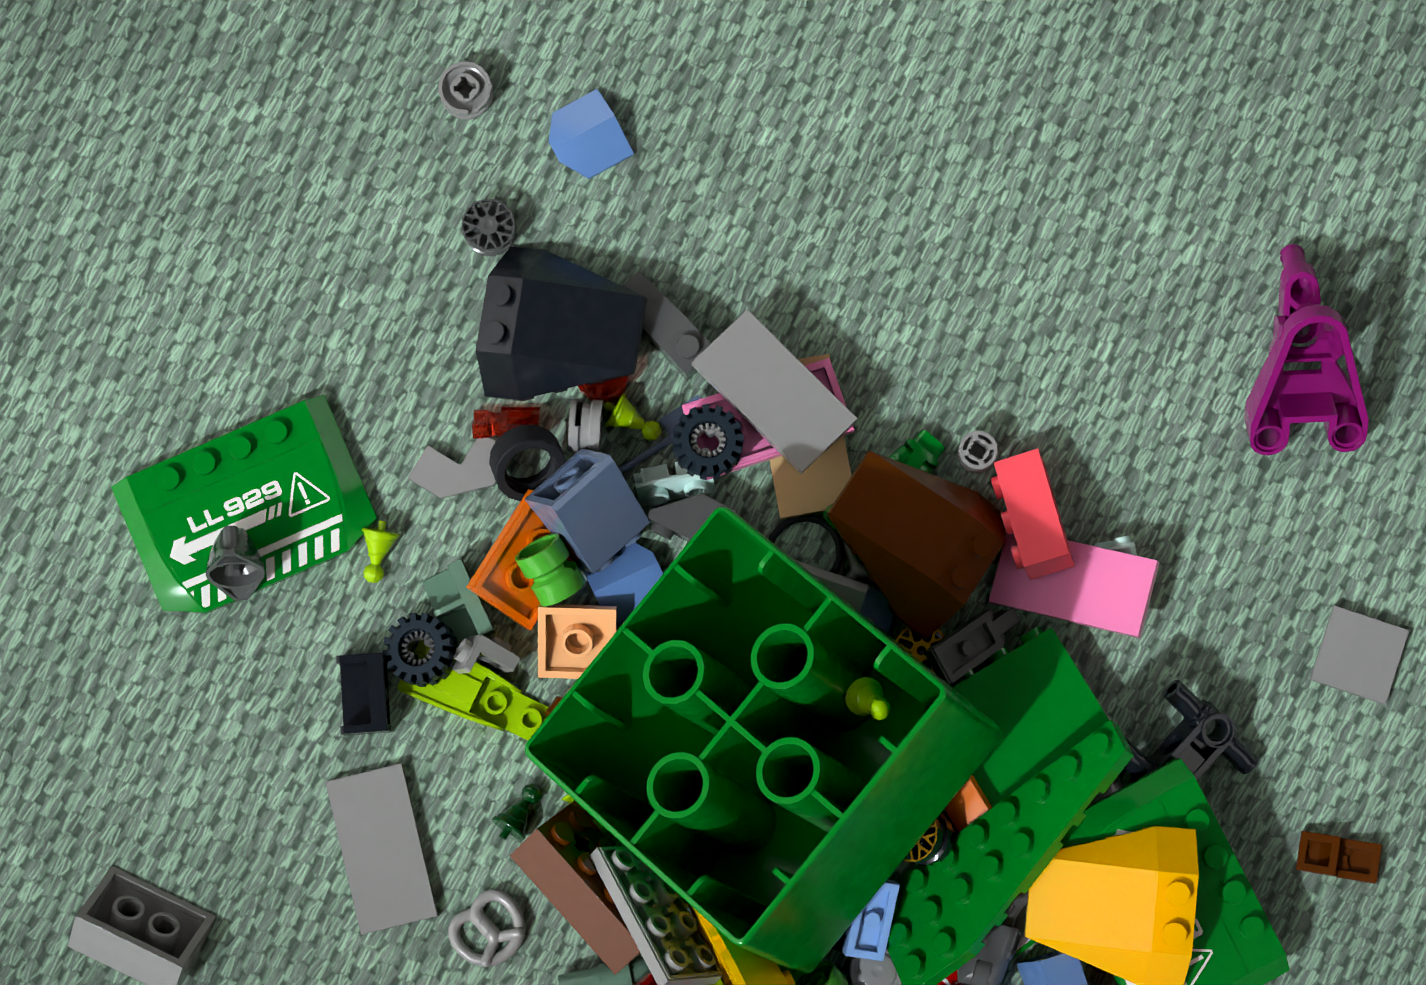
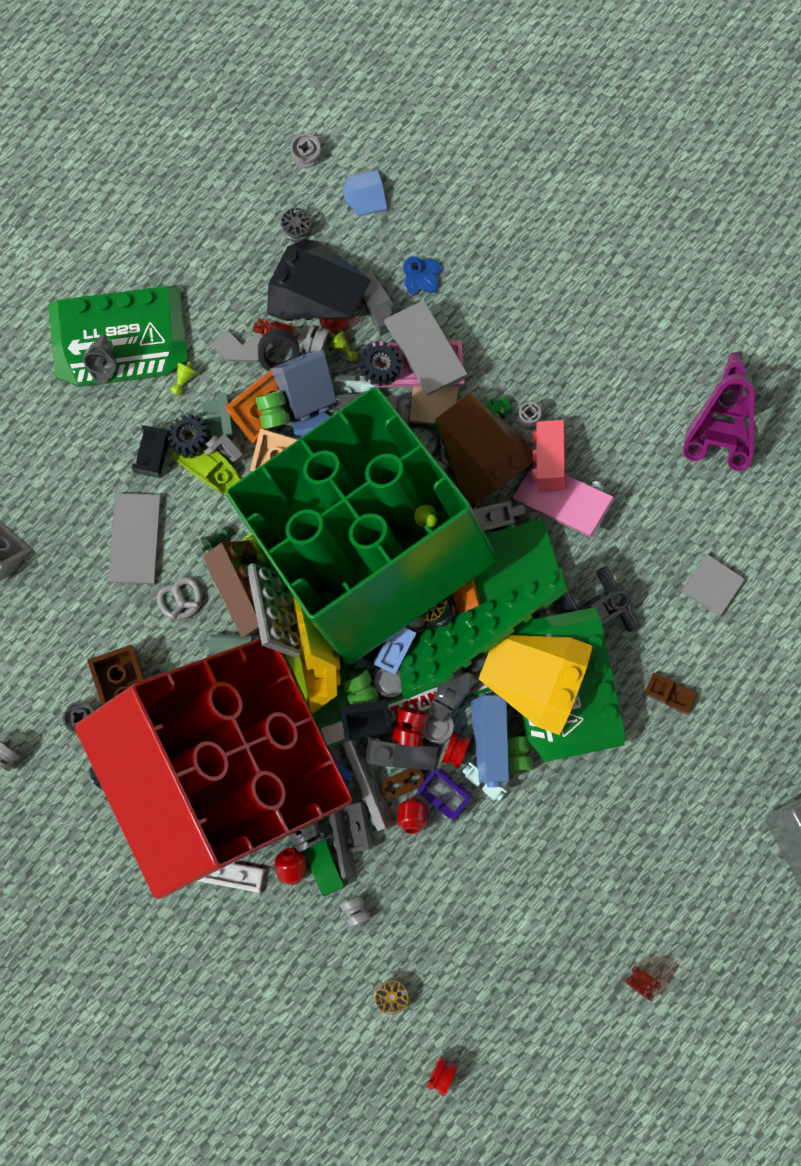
camera: 10 degrees right, 5 degrees down
(732, 256) = (424, 277): none -> blue plate
(761, 506) = (402, 406): none -> dark grey wheel

